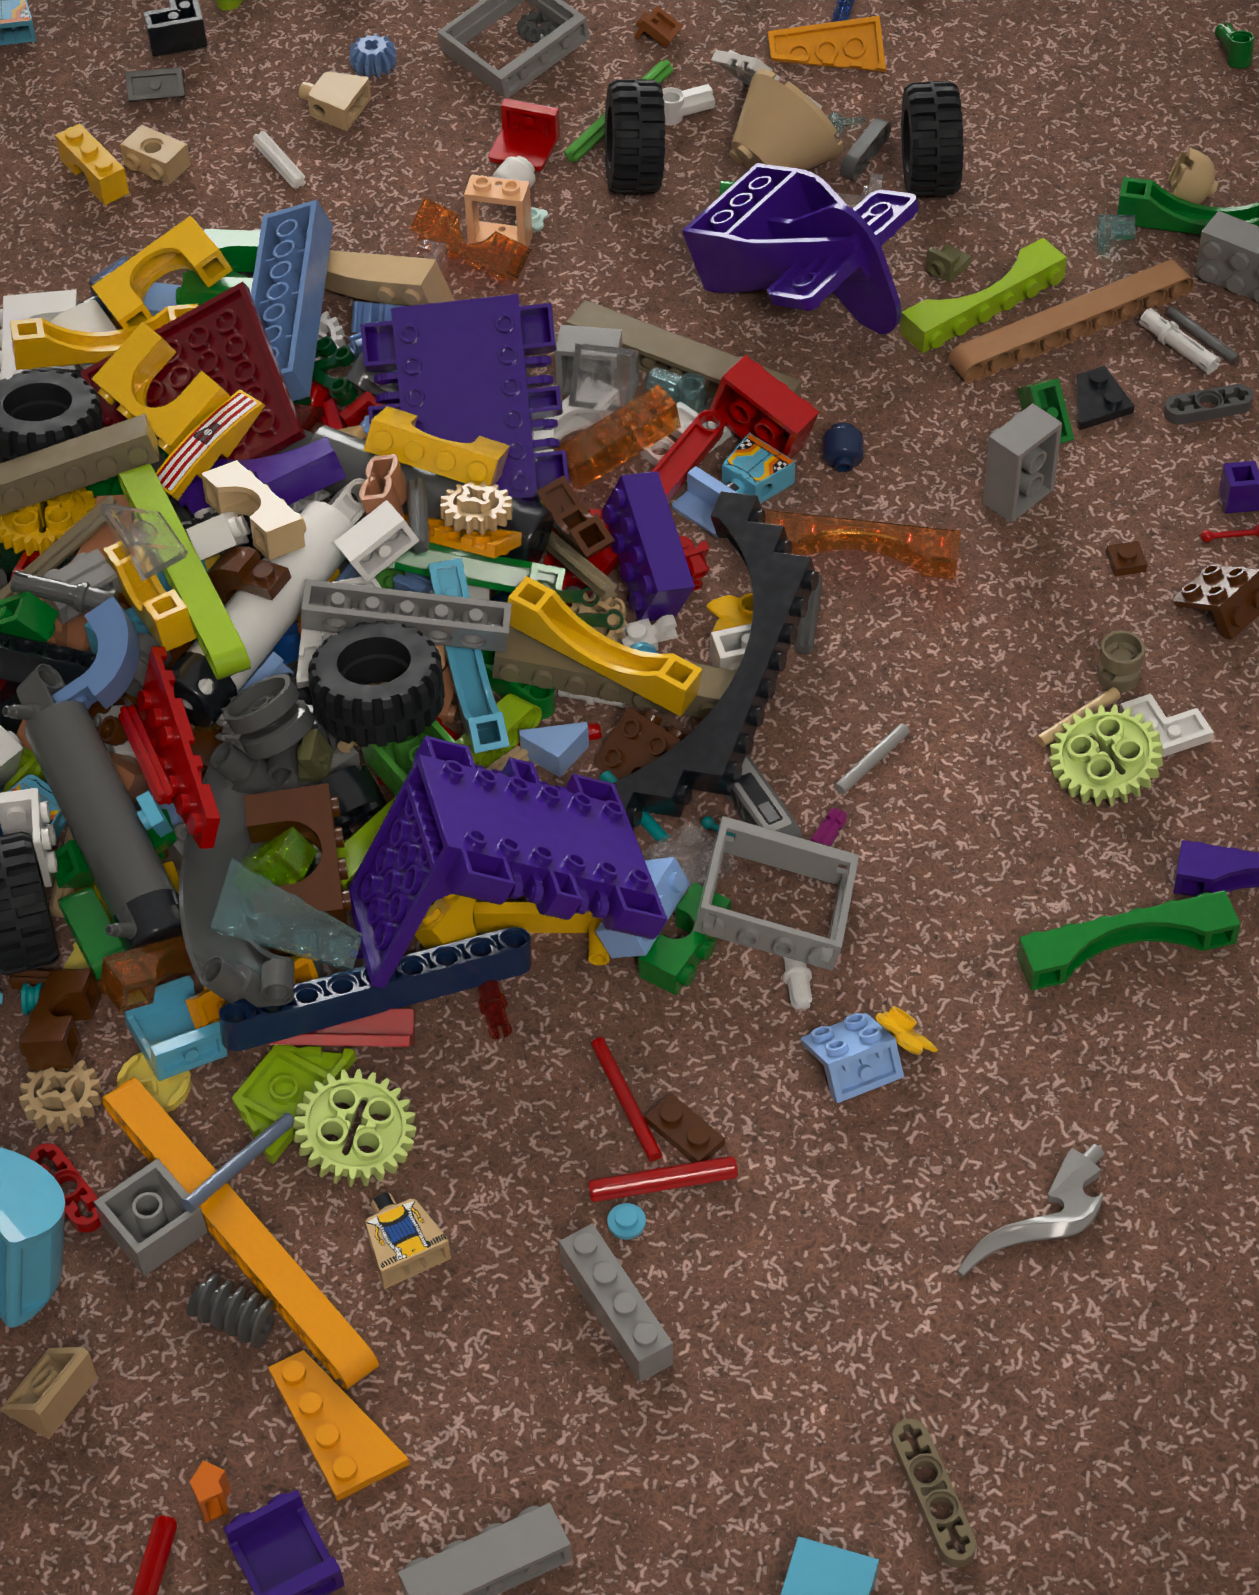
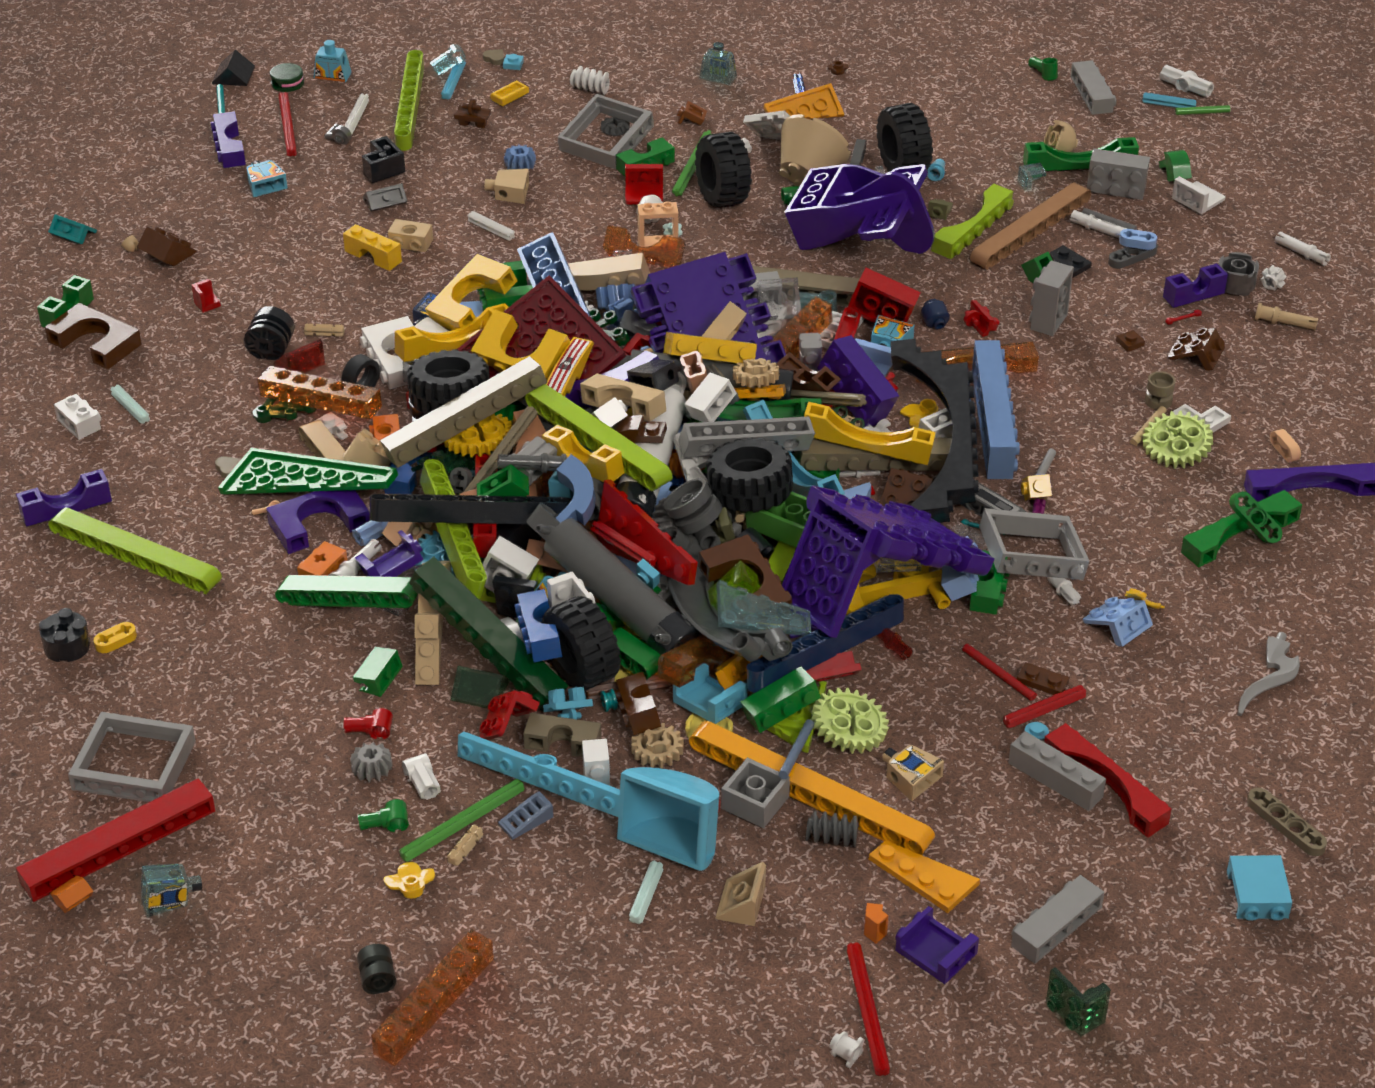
camera: 20 degrees left, 10 degrees down
(143, 538) = (569, 422): clear slope -> none
(259, 1070) = (780, 699): none -> green brick
(317, 483) = (662, 373): none -> black torso
(469, 417) = (726, 323): none -> tan window
(574, 88) = (658, 152): none -> green arch
(605, 473) = (810, 350): none -> light grey brick
(716, 1407) = (1144, 808): none -> red arch
(837, 790) = (1036, 487): none -> brick
(839, 639) = (995, 410): none -> medium blue brick
(907, 470) = (980, 319): none -> red hips
(974, 194) = (936, 170): none -> medium azure cone
(1157, 957) = (1246, 517): none -> green beam
(1223, 381) = (1138, 239): none -> light blue beam

